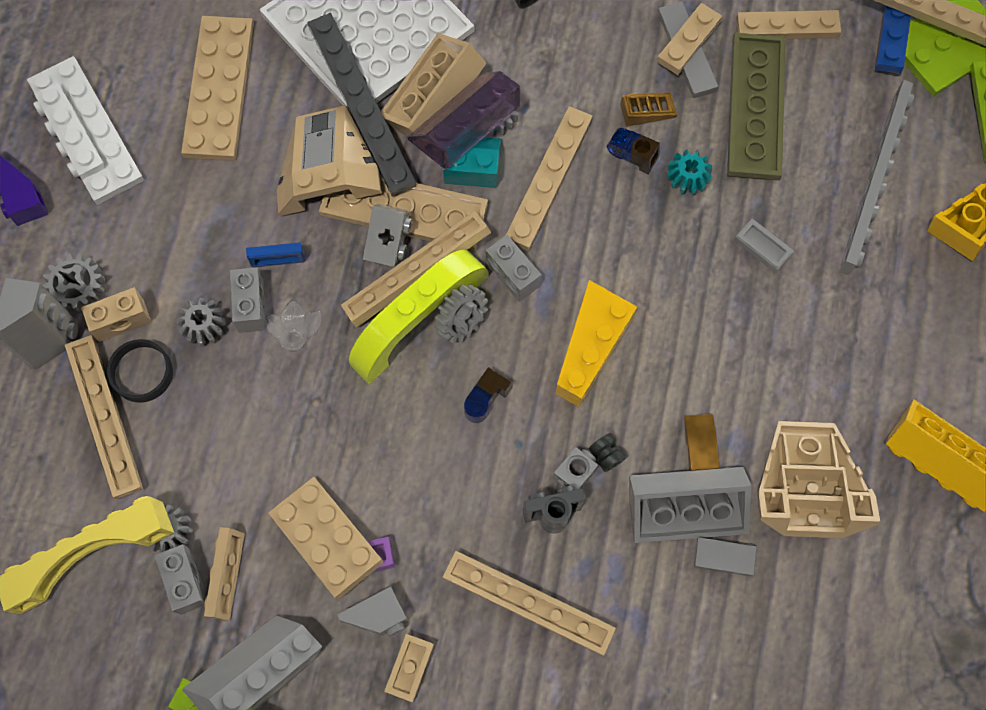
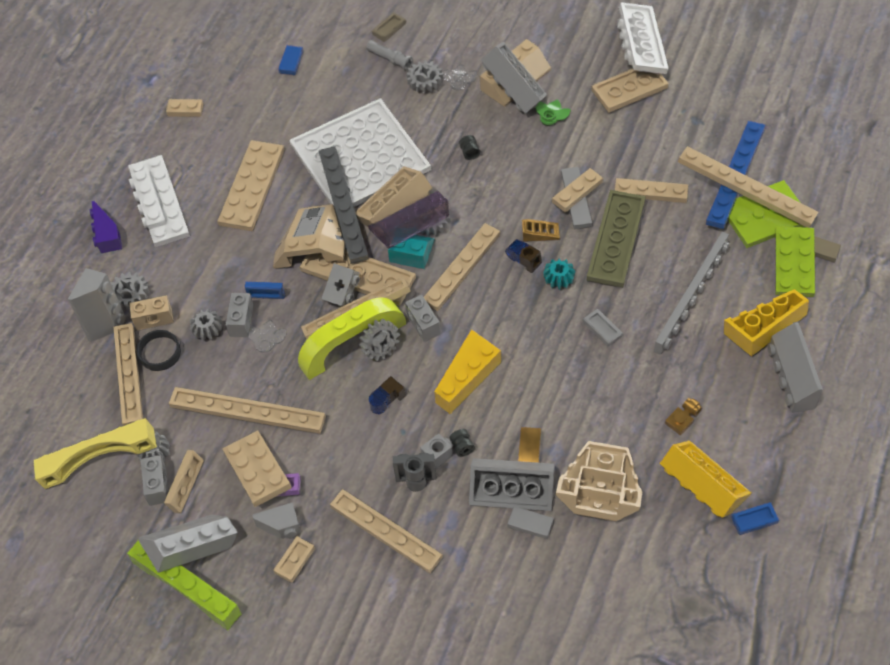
camera: 15 degrees right, 15 degrees down
(290, 447) = (247, 410): none -> tan plate
(897, 370) = (680, 419): none -> pearl gold plate

